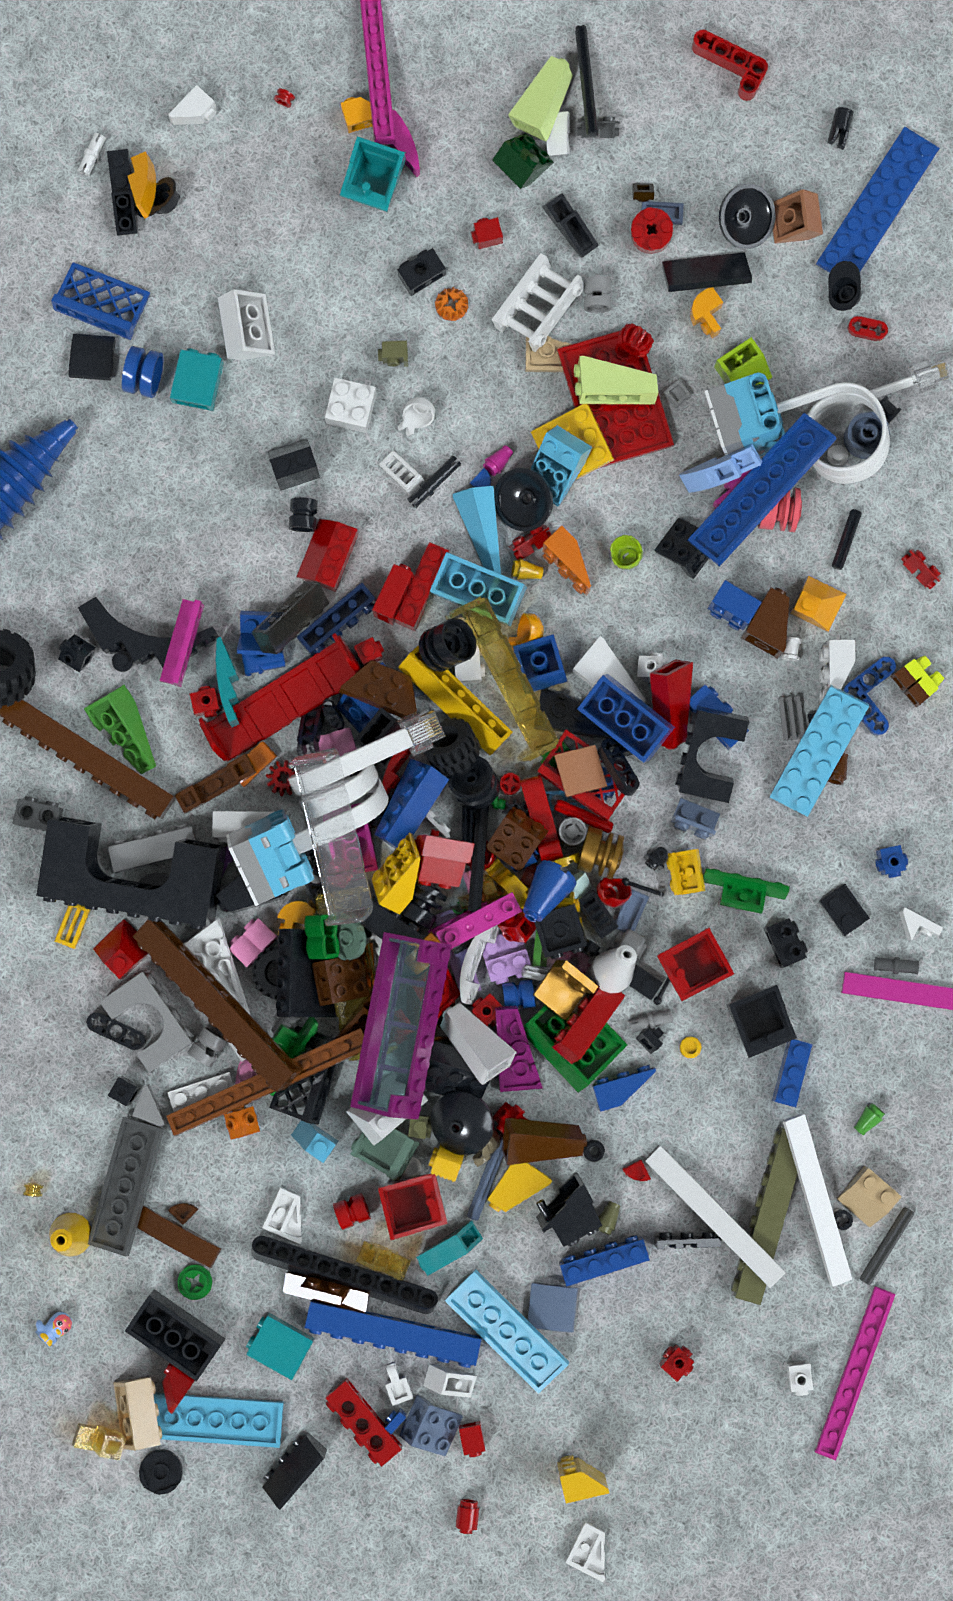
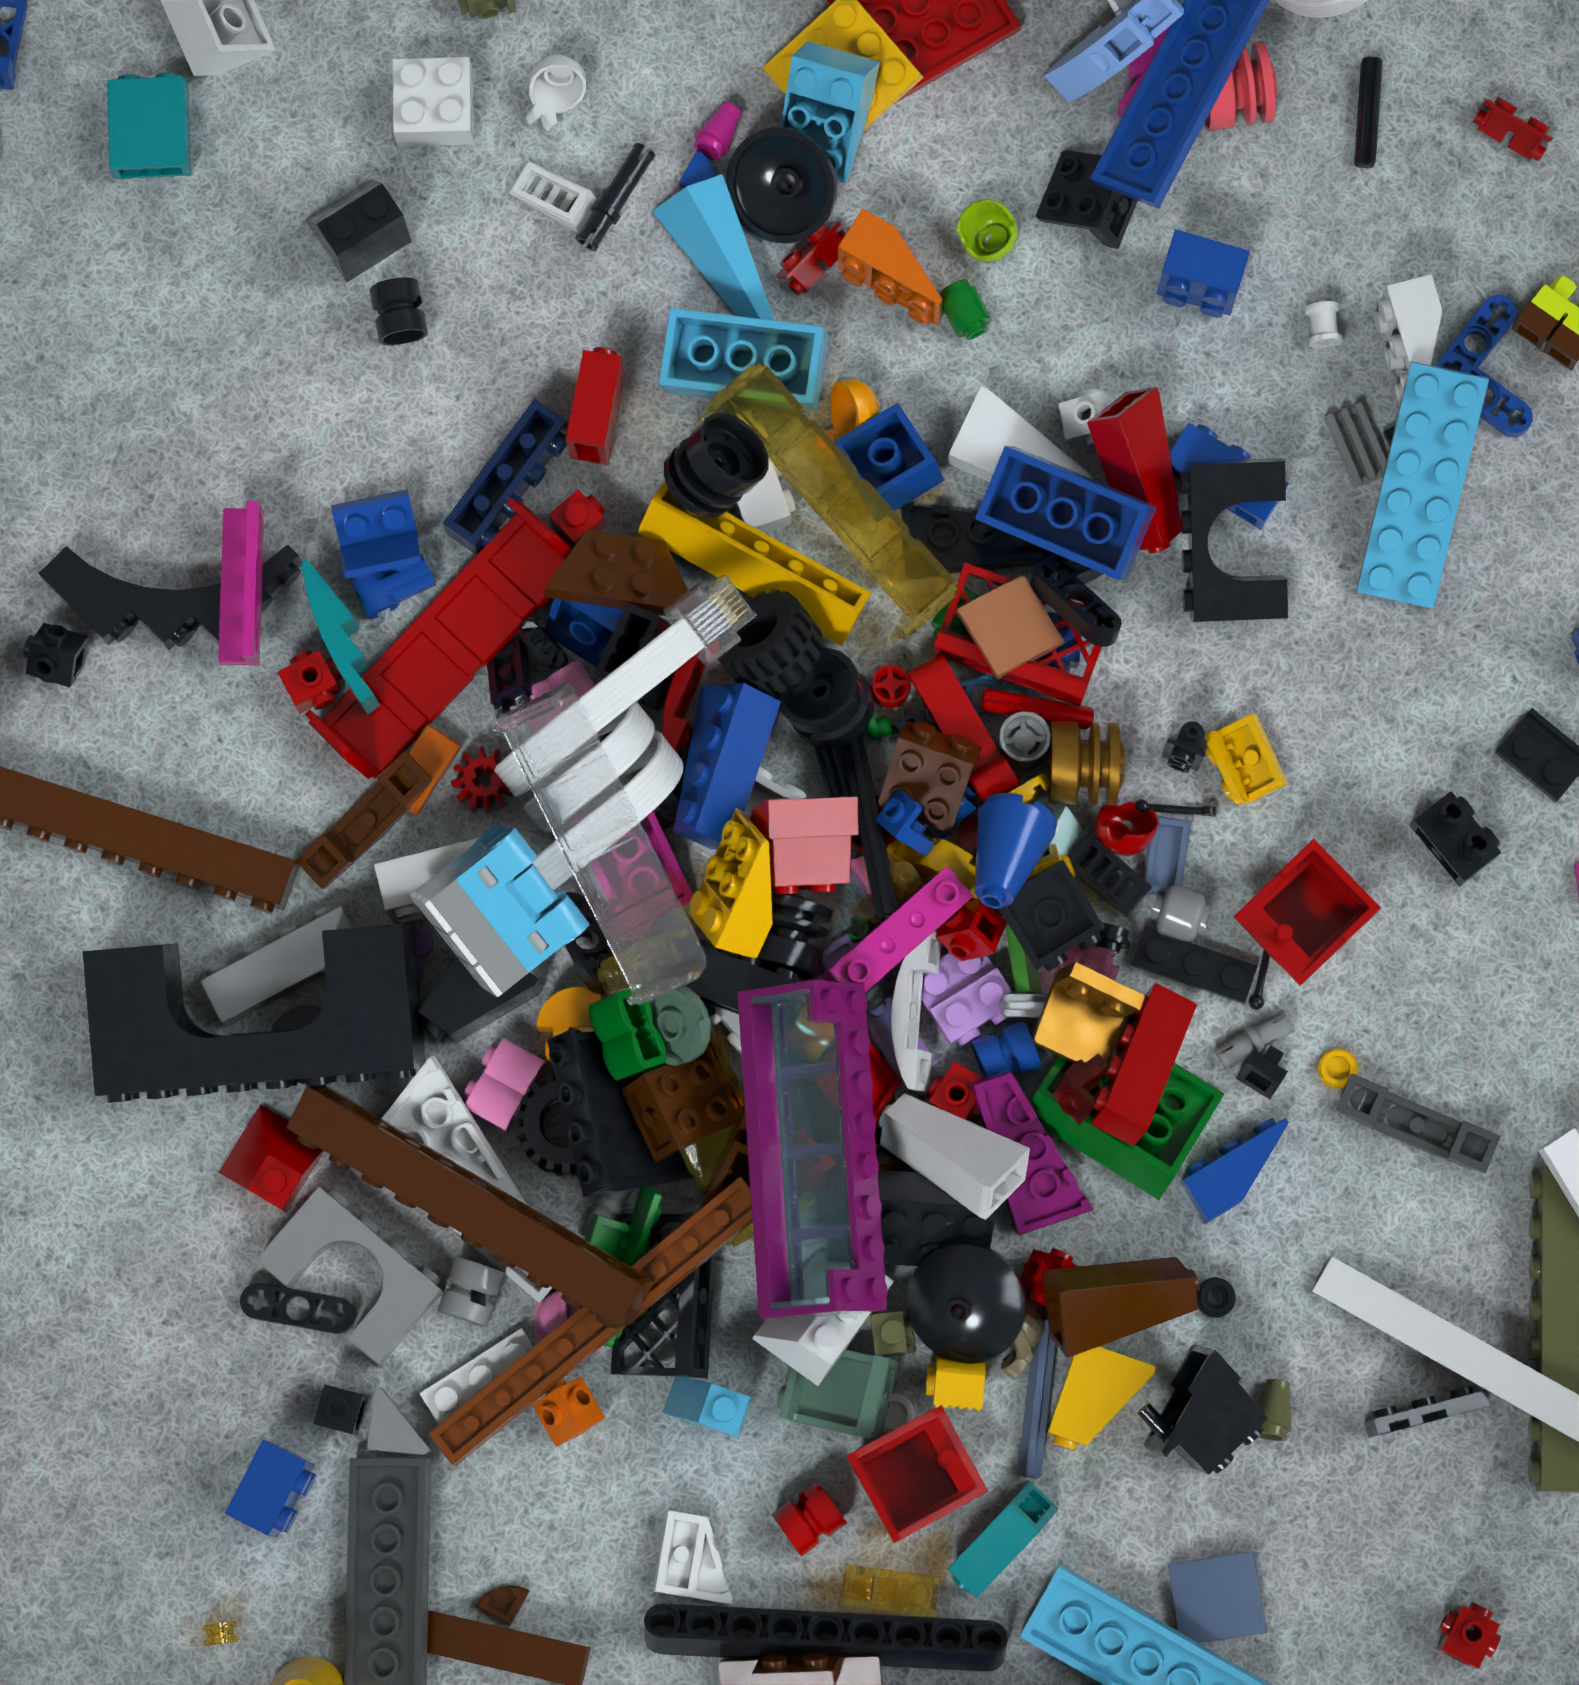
camera: 10 degrees left, 5 degrees down
(36, 820) = (58, 970): dark grey brick -> none
(76, 1124) = (271, 1489): none -> blue brick
(79, 930) = (166, 1174): yellow tile -> none
(121, 719) = (166, 752): bright green wedge -> none
(122, 661) = (141, 649): black plate -> none
(142, 371) = (50, 135): blue wheel -> none
(290, 617) = (424, 492): clear smoke brick -> none
(328, 553) = (460, 368): red slope -> none
(417, 595) = (639, 388): red arch -> none
(495, 861) = (900, 821): none -> blue bracket
(526, 570) = (819, 308): yellow cone -> none
(546, 1027) = (1074, 1089): none -> clear red bracket
(603, 591) = (965, 309): none -> green brick
(604, 1261) = (1288, 1488): blue brick -> none
(614, 969) = (1165, 957): white cone -> none
(637, 1171) = (1303, 1314): red tile -> none
(696, 818) = (1236, 663): sand blue bracket -> none
(724, 1088) = (1417, 1125): none -> dark grey slope
(743, 891) = (1357, 766): green bracket -> none
(762, 1020) = (1452, 981): black piece -> none
(769, 624) = (1274, 289): reddish brown slope -> none
(792, 1072) = (1531, 1063): blue brick -> none
(818, 603) = (1349, 235): light orange slope -> none
(839, 774) = (1469, 515): reddish brown cone -> none

